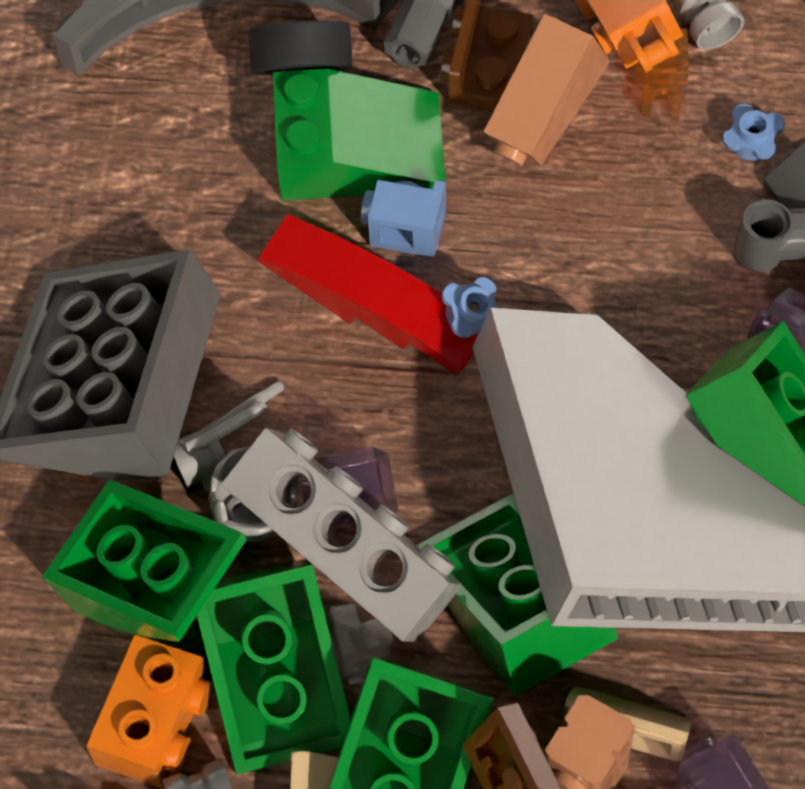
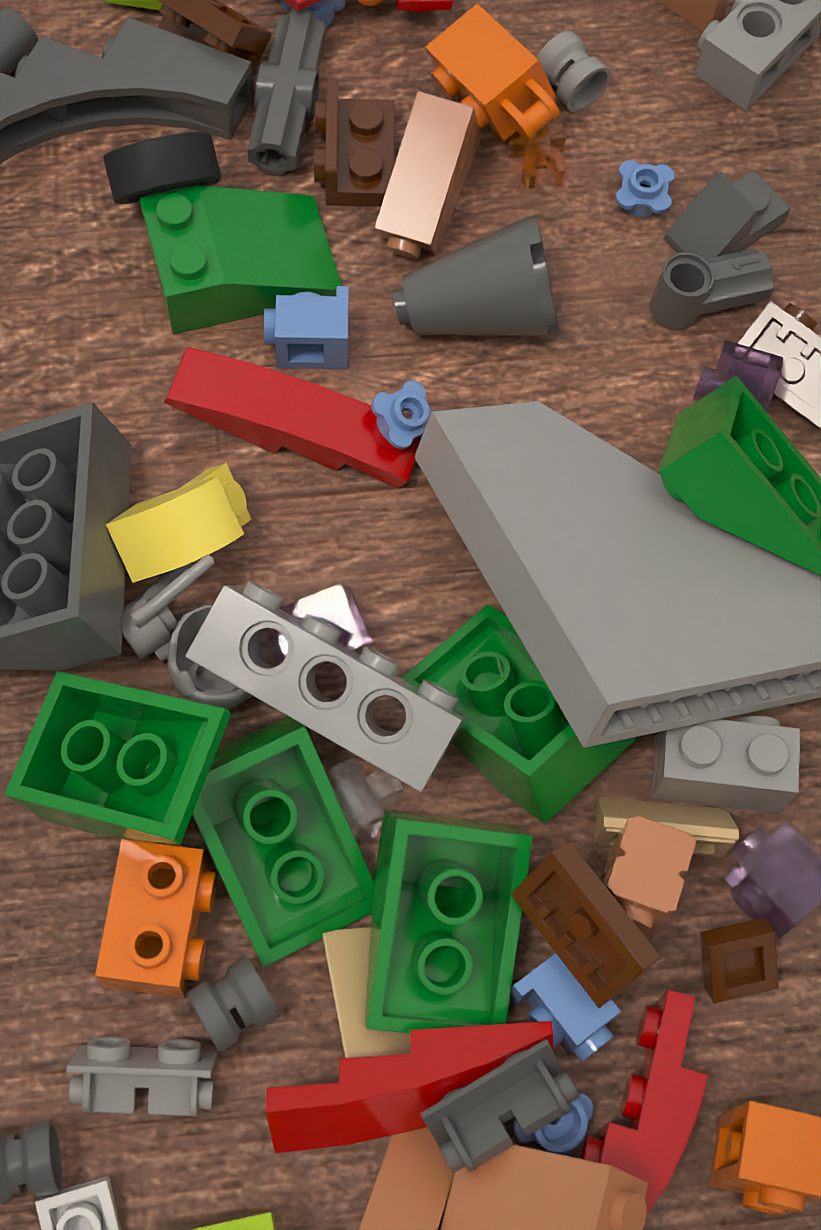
camera: 20 degrees left, 5 degrees up
(247, 370) = (180, 524): none -> light yellow brick
(575, 203) = (483, 288): none -> dark grey cone
(696, 675) = (728, 764): none -> light grey brick

